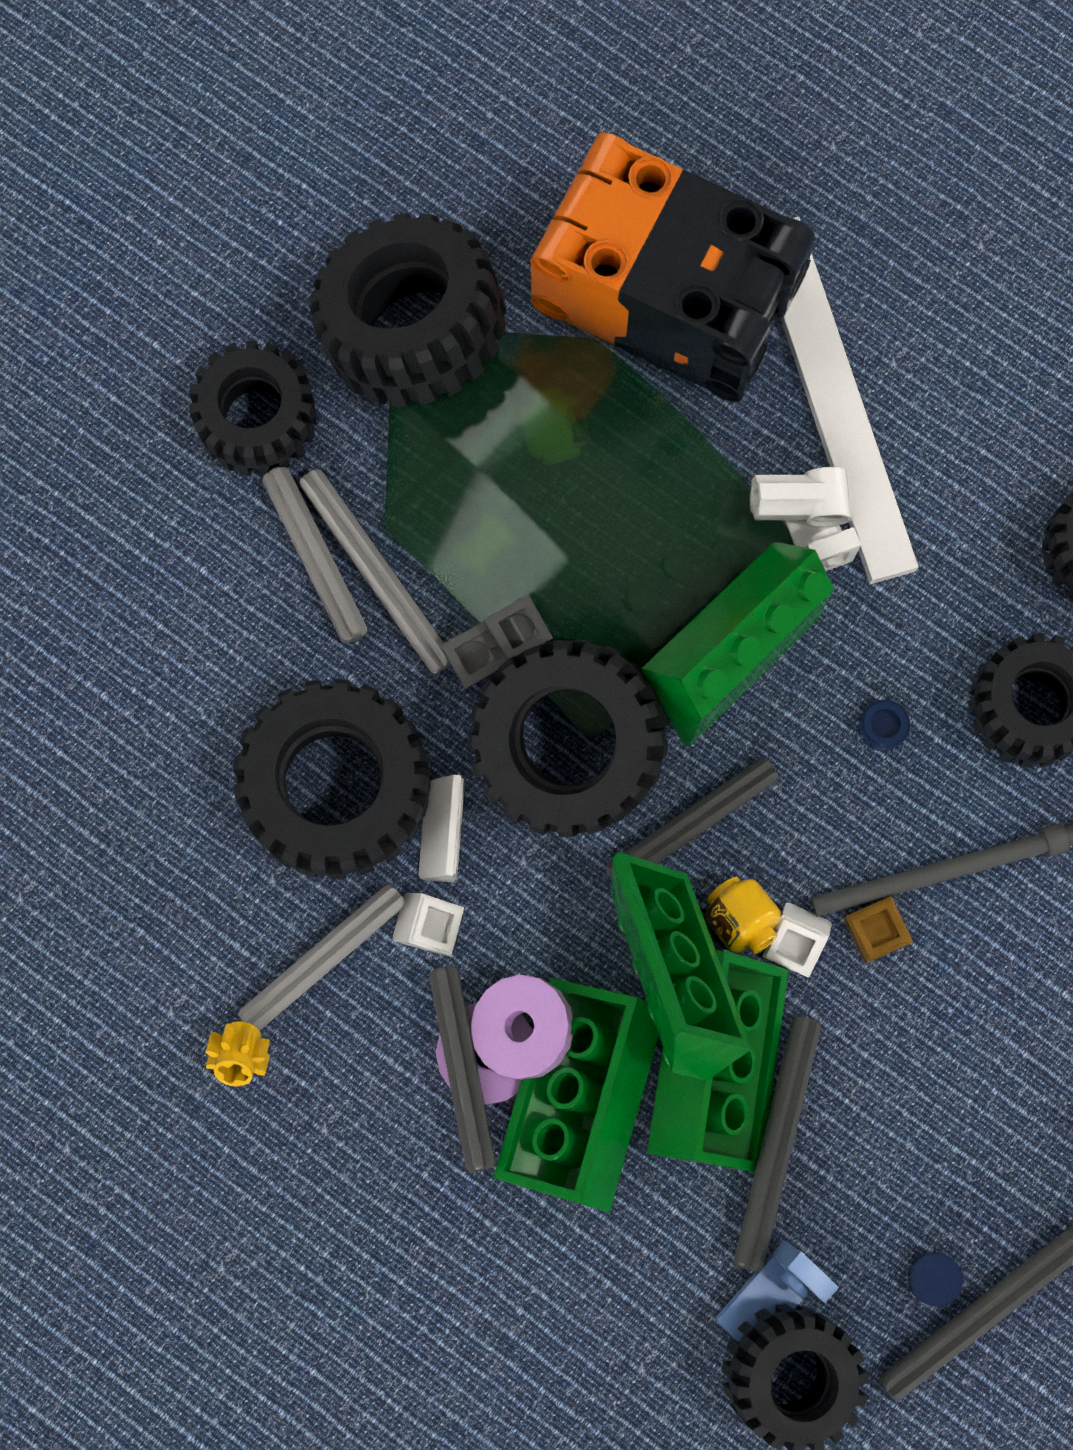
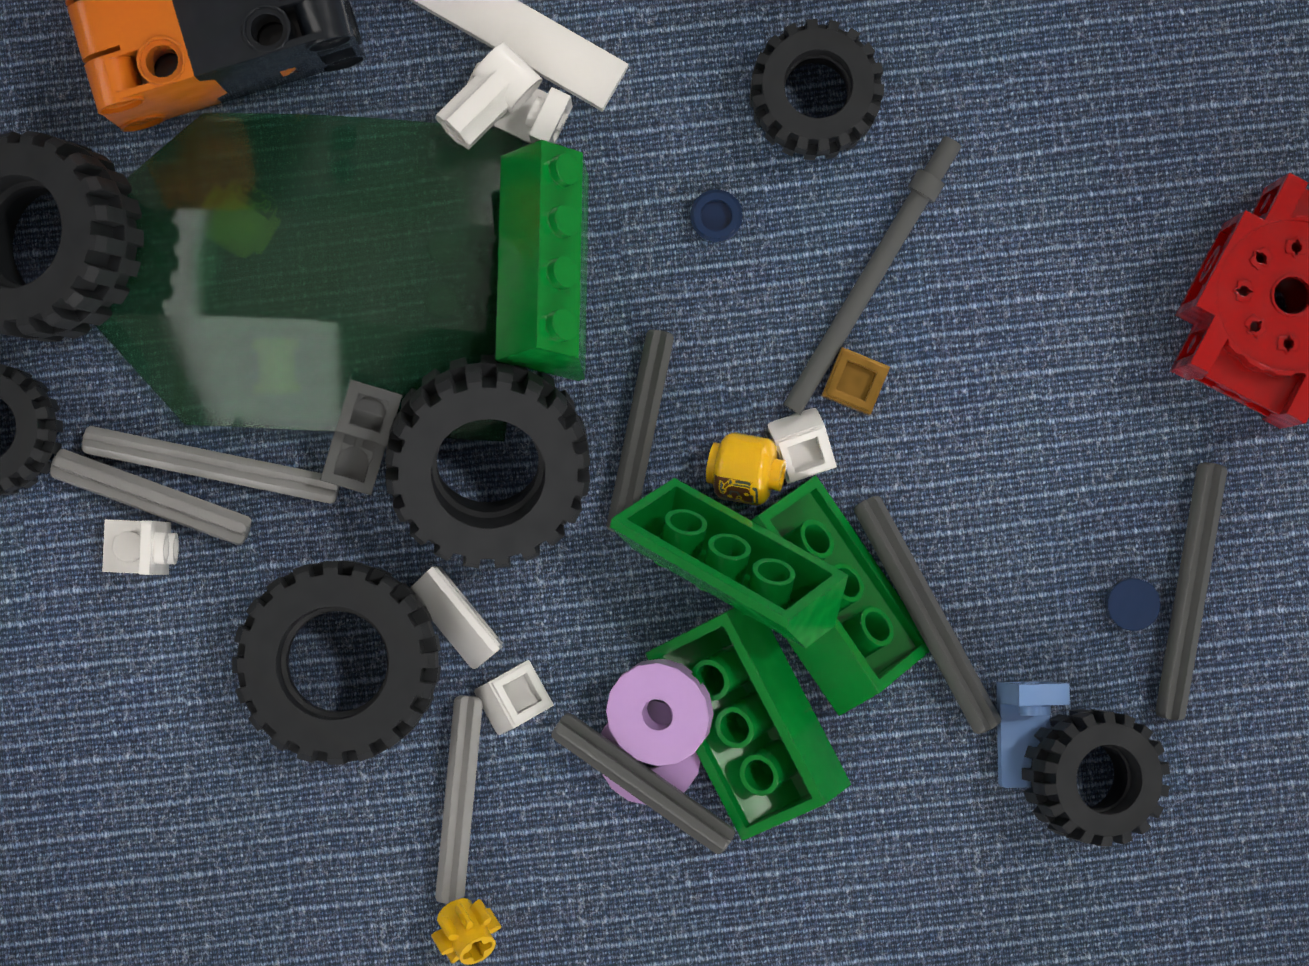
camera: 40 degrees left, 10 degrees up
(275, 579) = (139, 547): none -> white bracket

